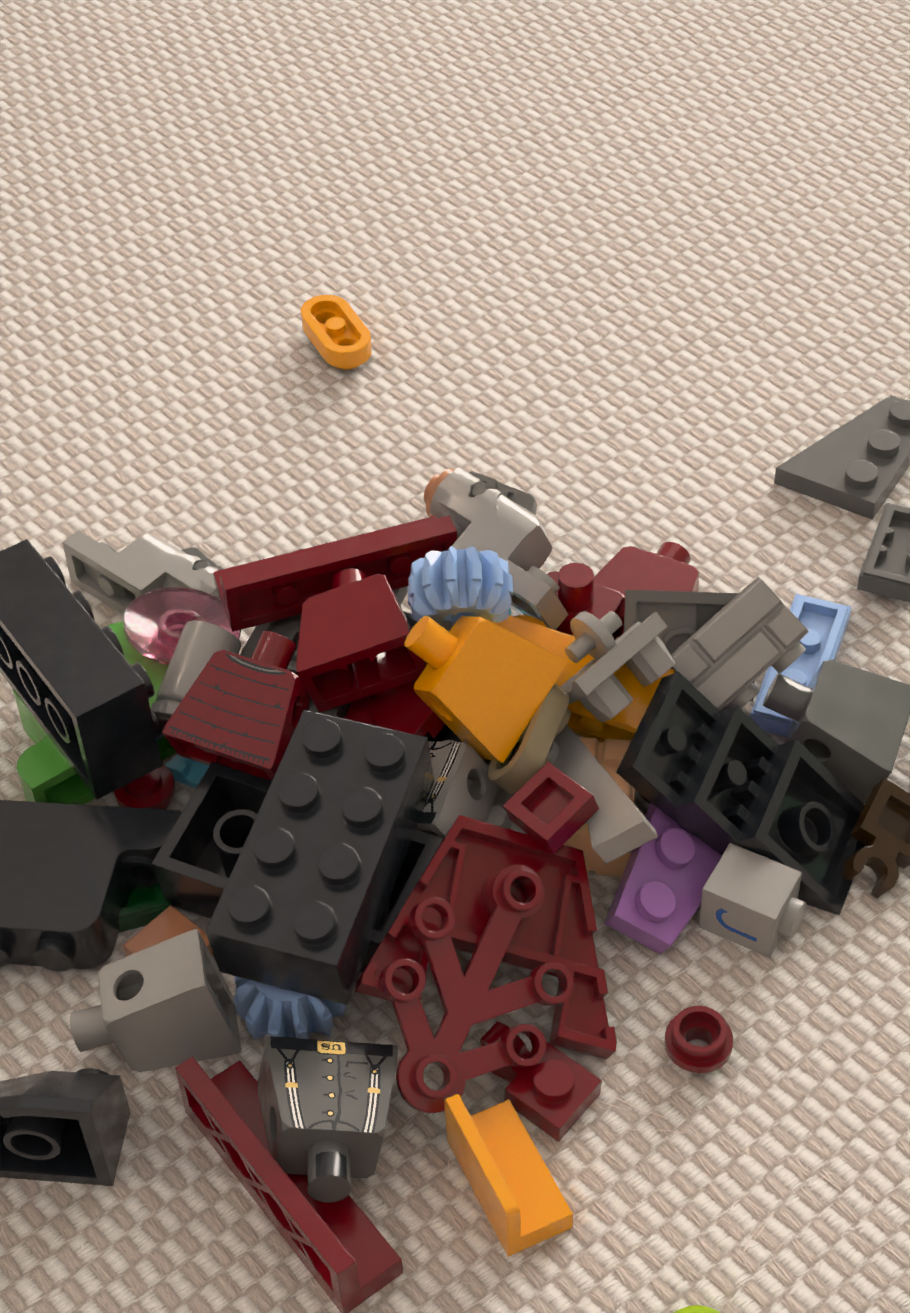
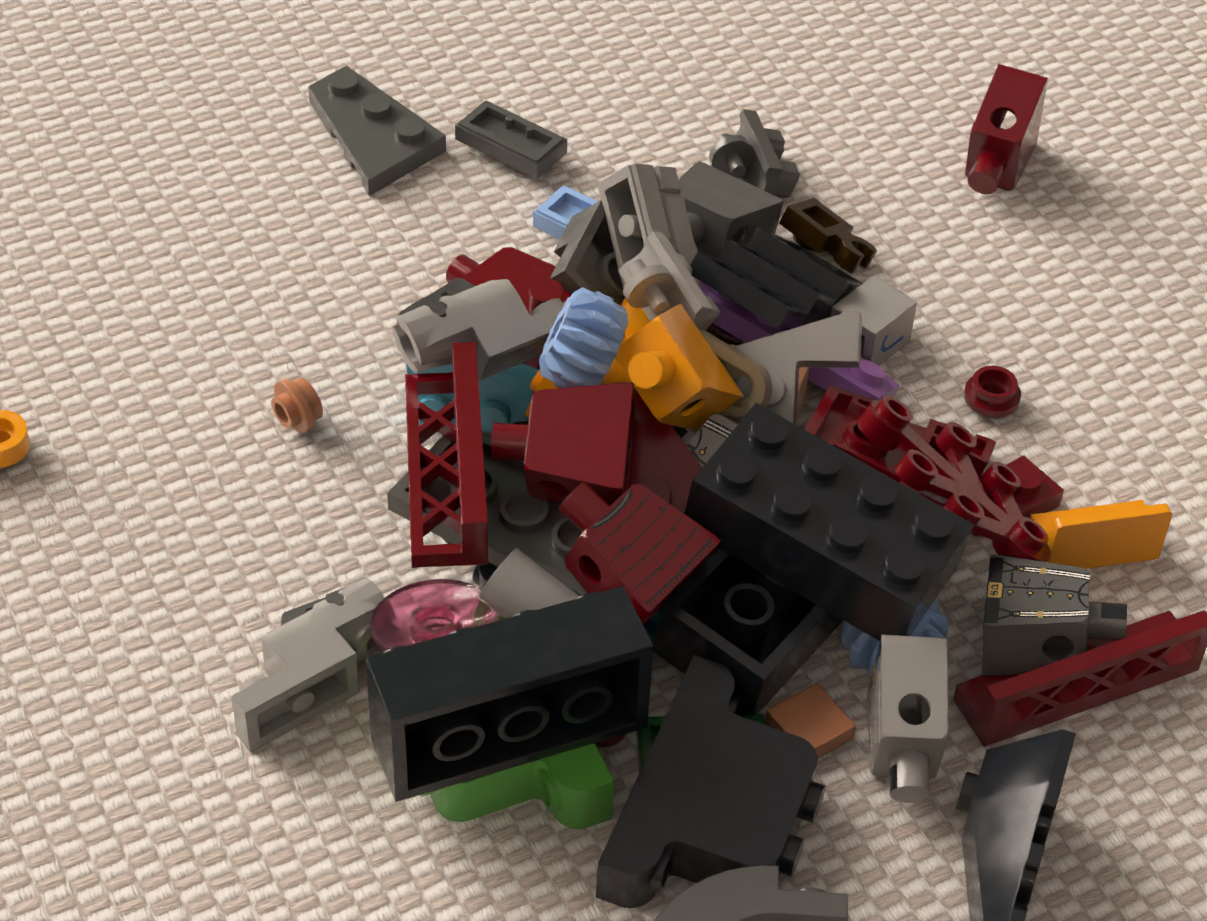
camera: 80 degrees left, 0 degrees up
(551, 807) = (809, 374): dark red plate -> none

